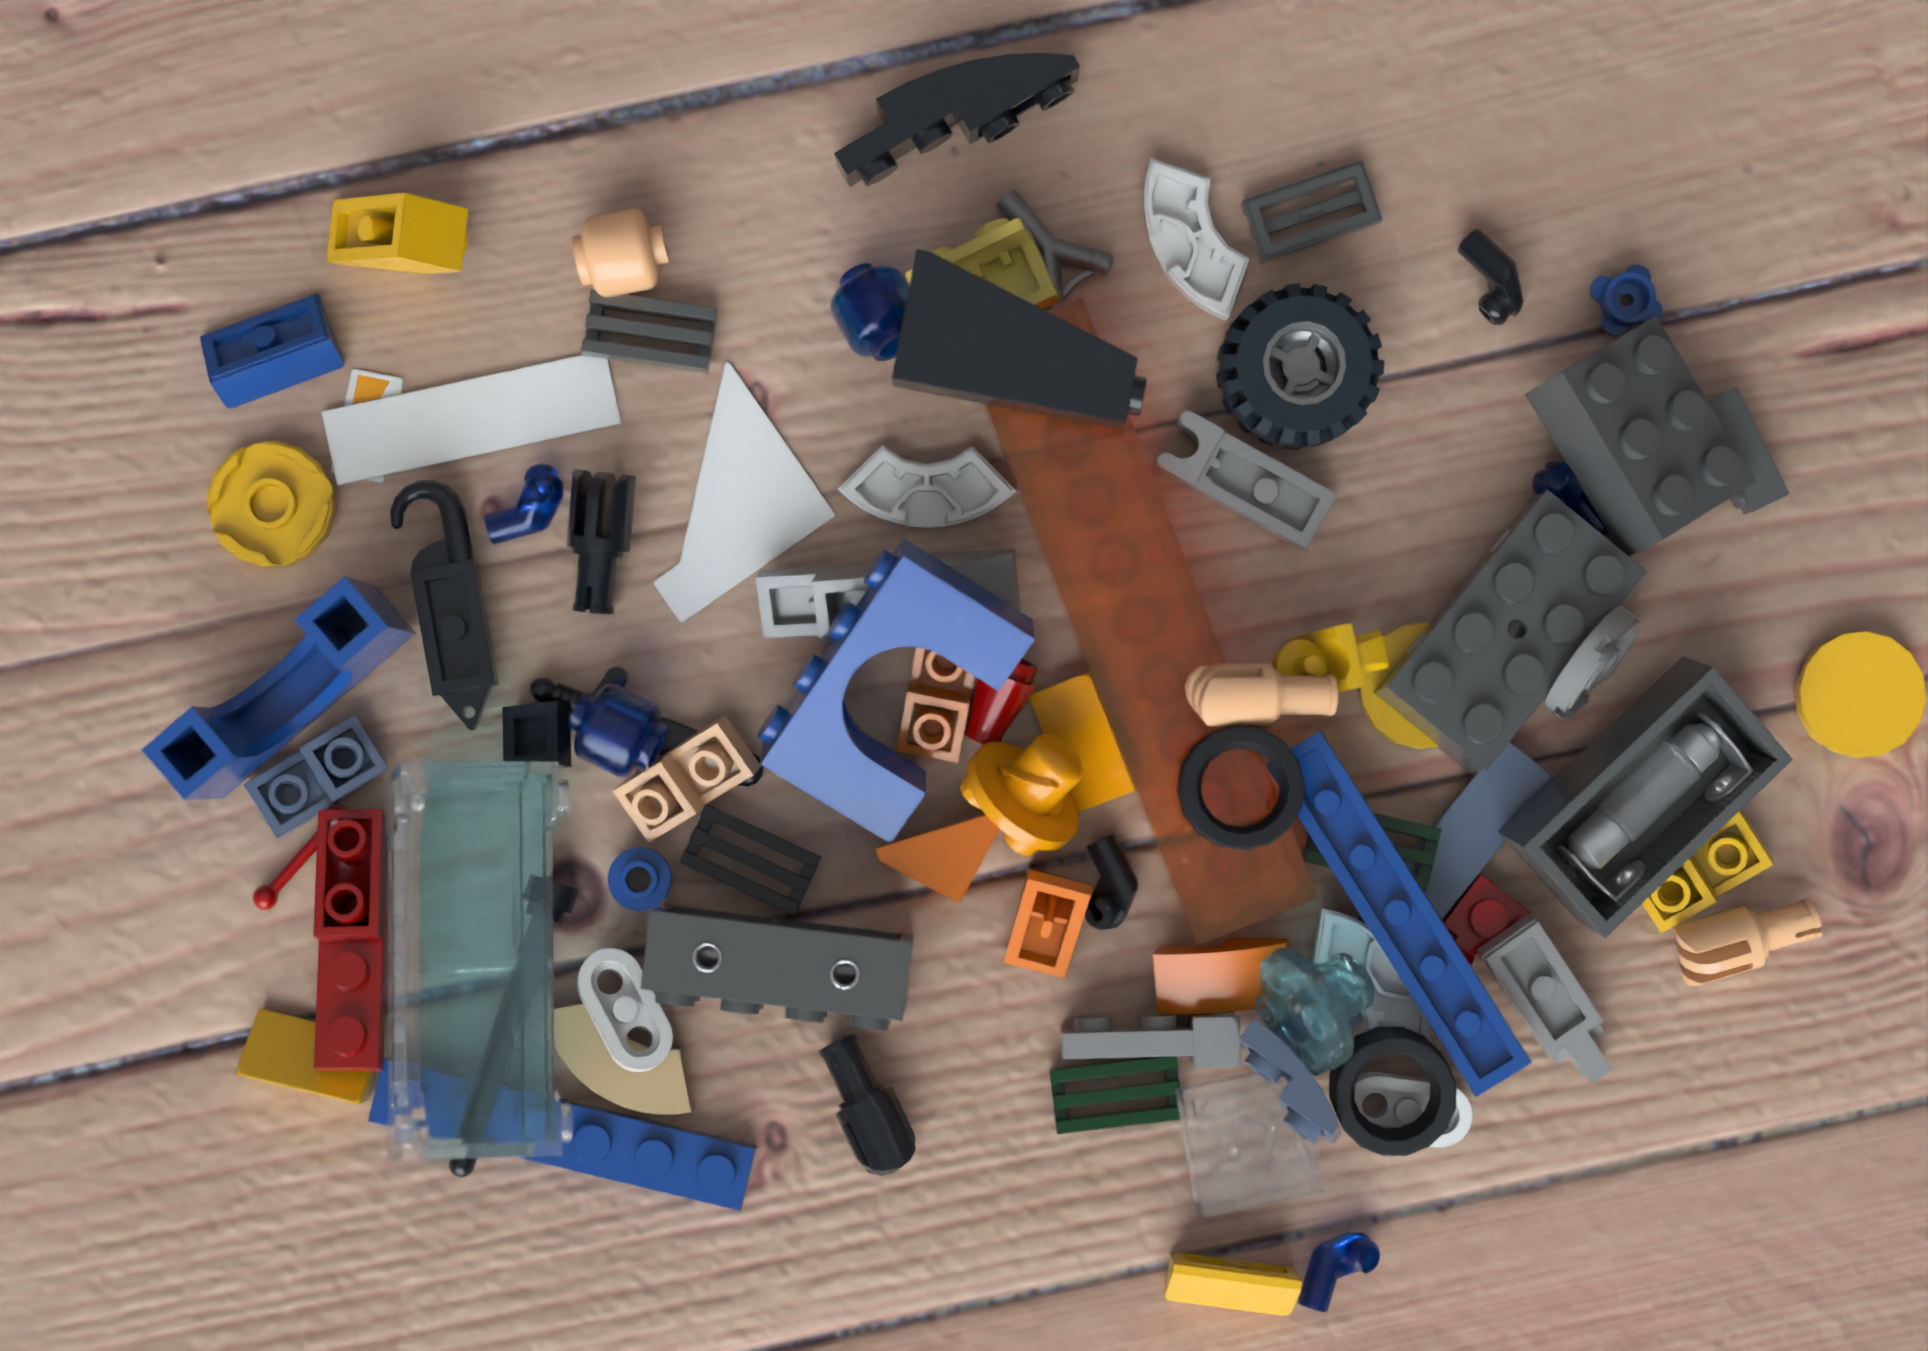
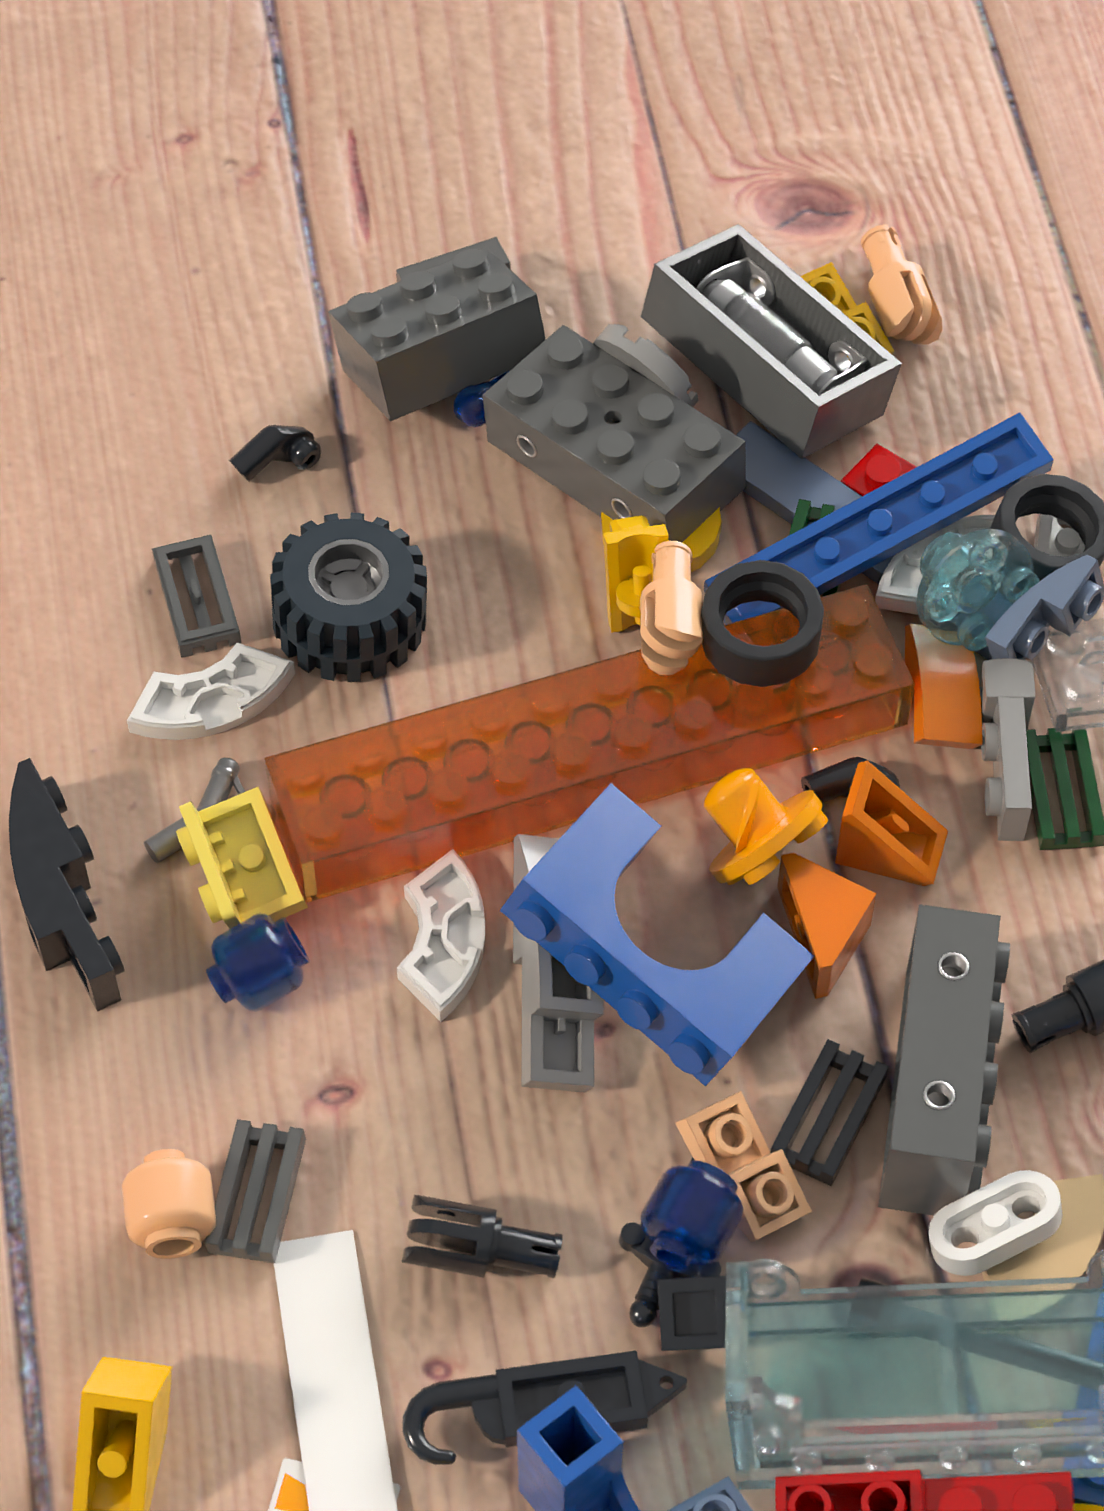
camera: 90 degrees left, 30 degrees down
(534, 508) = (443, 1312): clear blue arm -> none
(660, 878) = (848, 1236): blue plate -> none
(746, 504) = (452, 1109): white sticker -> none
(935, 707) = (673, 929): orange slope -> none
(995, 710) = (668, 873): red cone -> none
(1004, 352) = (313, 808): black slope -> none
(1077, 716) = (678, 797): light orange slope -> none
(1248, 482) = (455, 648): light grey plate -> none
(1547, 996) = (949, 421): light grey hinge -> none
(1634, 283) = (303, 342): blue plate -> none
(1860, 694) = (676, 203): yellow tile -> none

